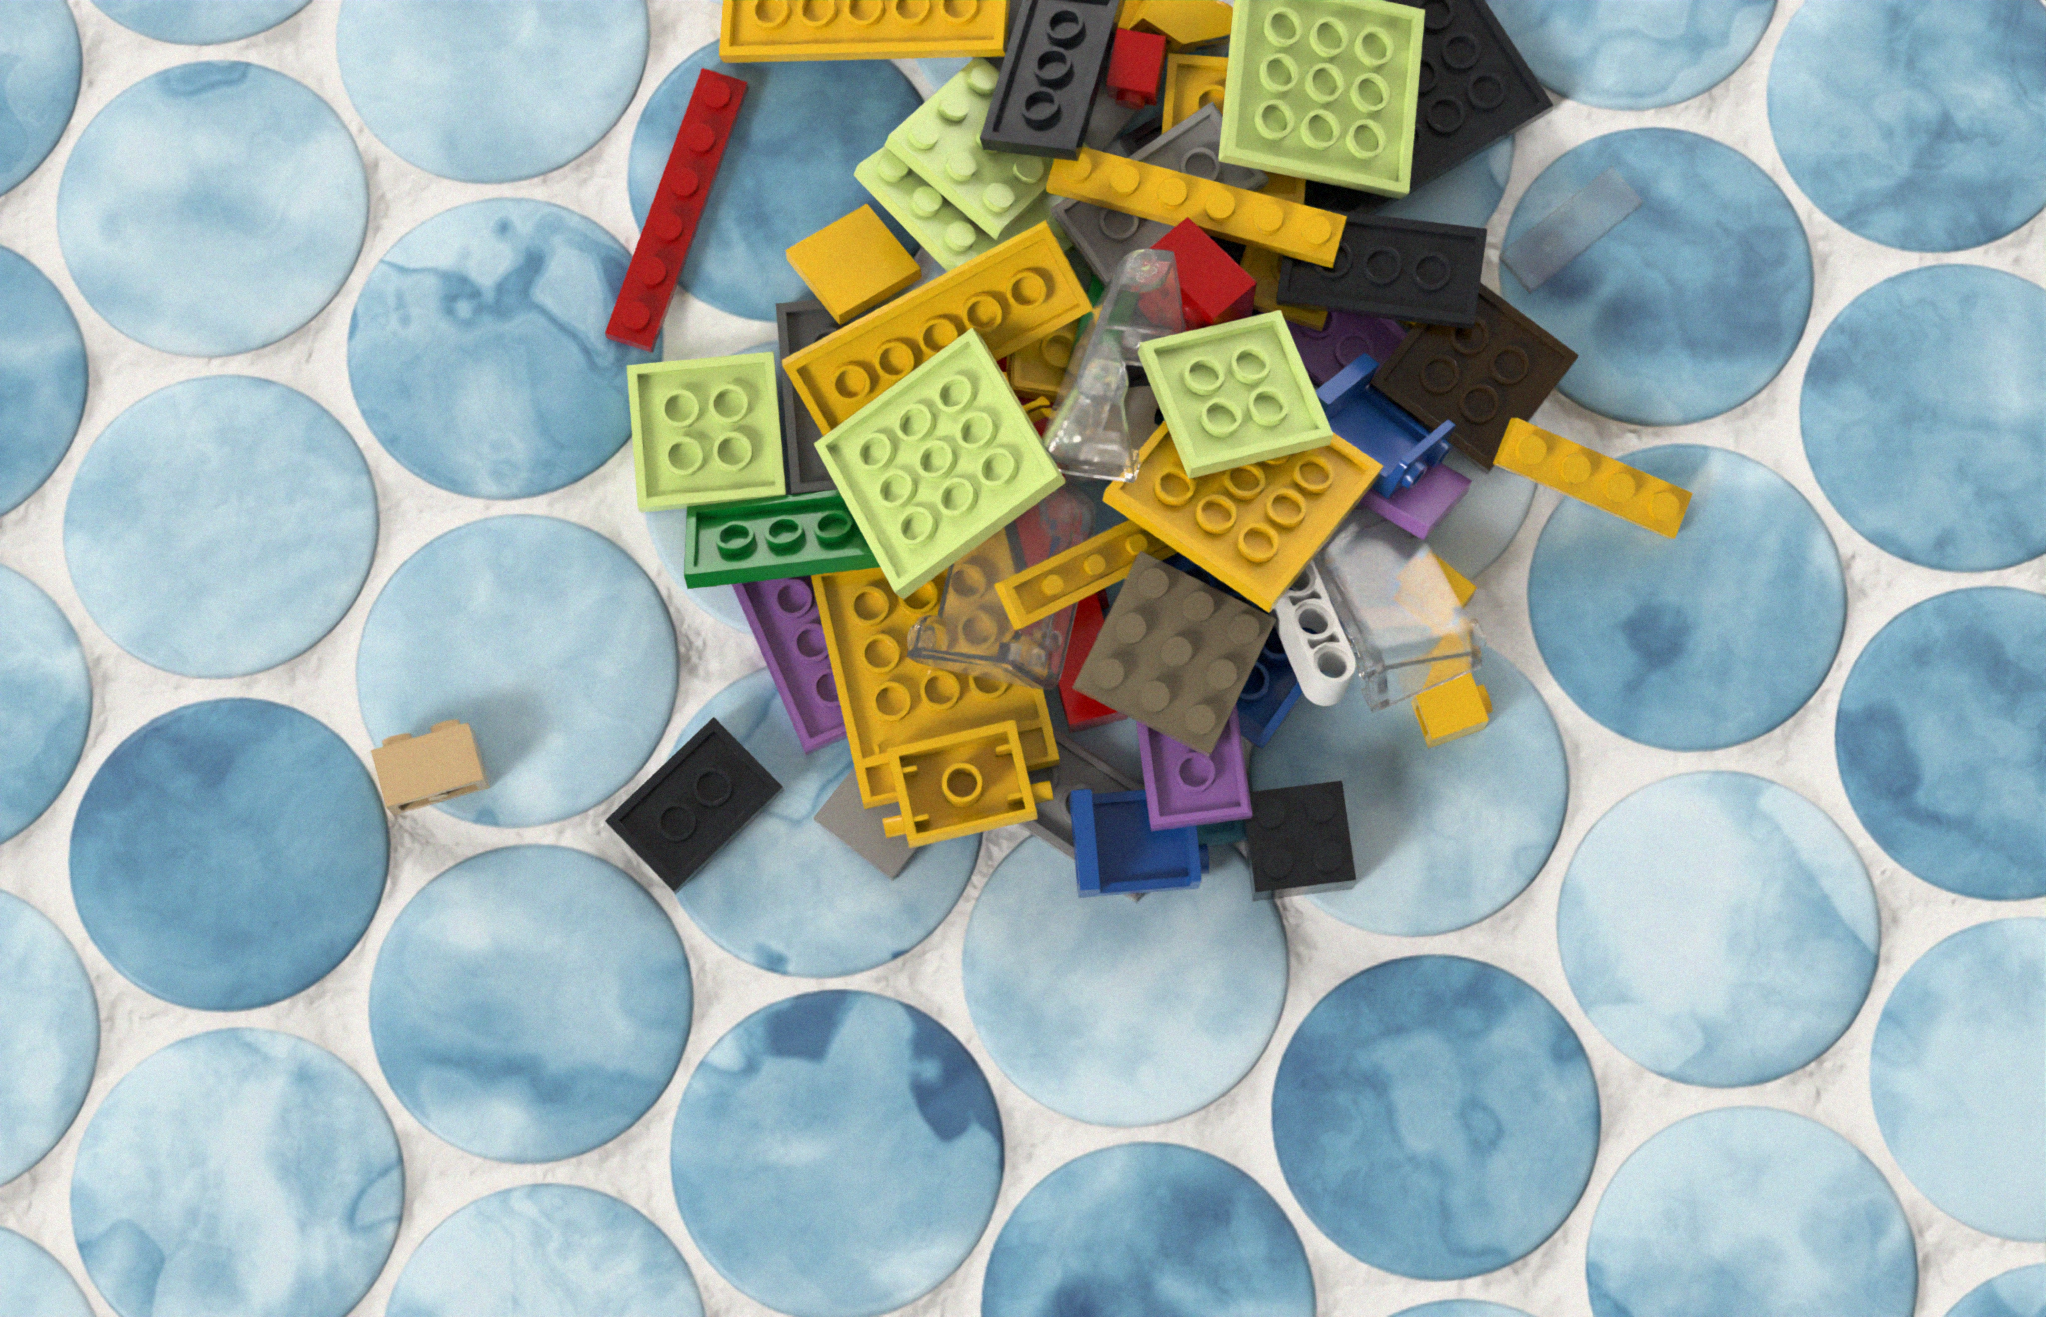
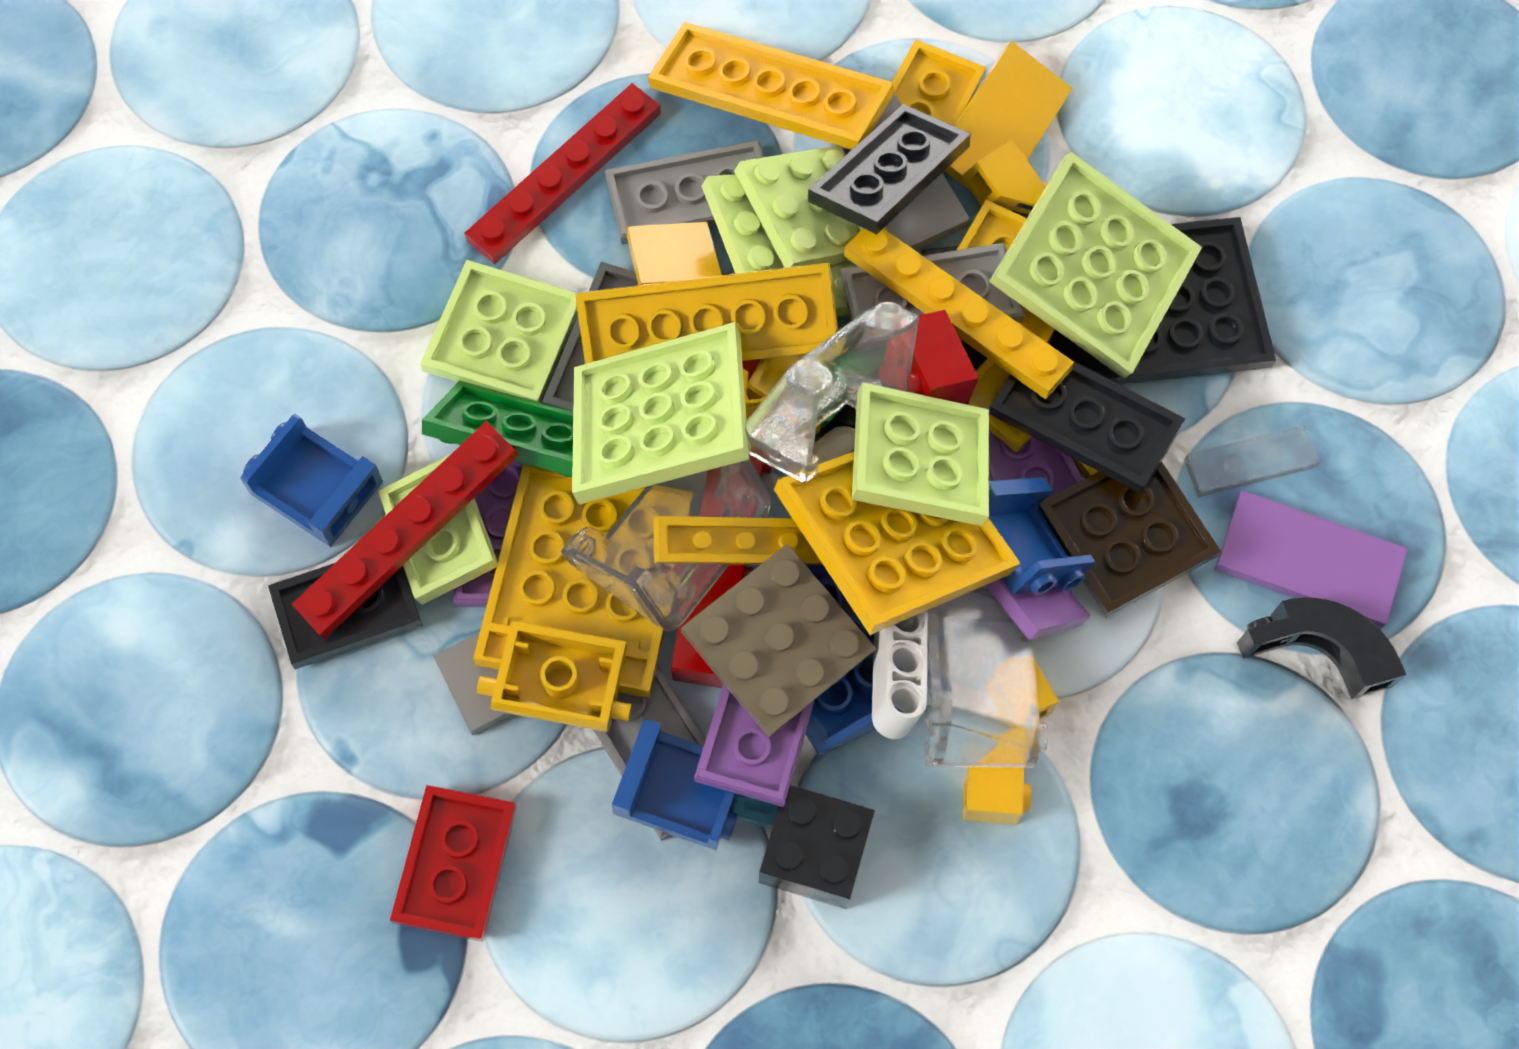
camera: 20 degrees right, 10 degrees down
(429, 767) = (158, 488): tan brick -> none
(586, 687) = (310, 480): none -> blue panel
(727, 700) = (405, 530): none -> red plate
(752, 681) = (452, 555): none -> yellowish green plate
(813, 174) = (671, 187): none -> light grey tile
(942, 1016) = (454, 863): none -> red plate
(1136, 68) = (955, 196): red brick -> none
(1592, 478) = (1193, 656): yellow plate -> none
(1673, 315) = (1310, 557): none -> medium lavender tile
(1726, 385) = (1339, 632): none -> black arch

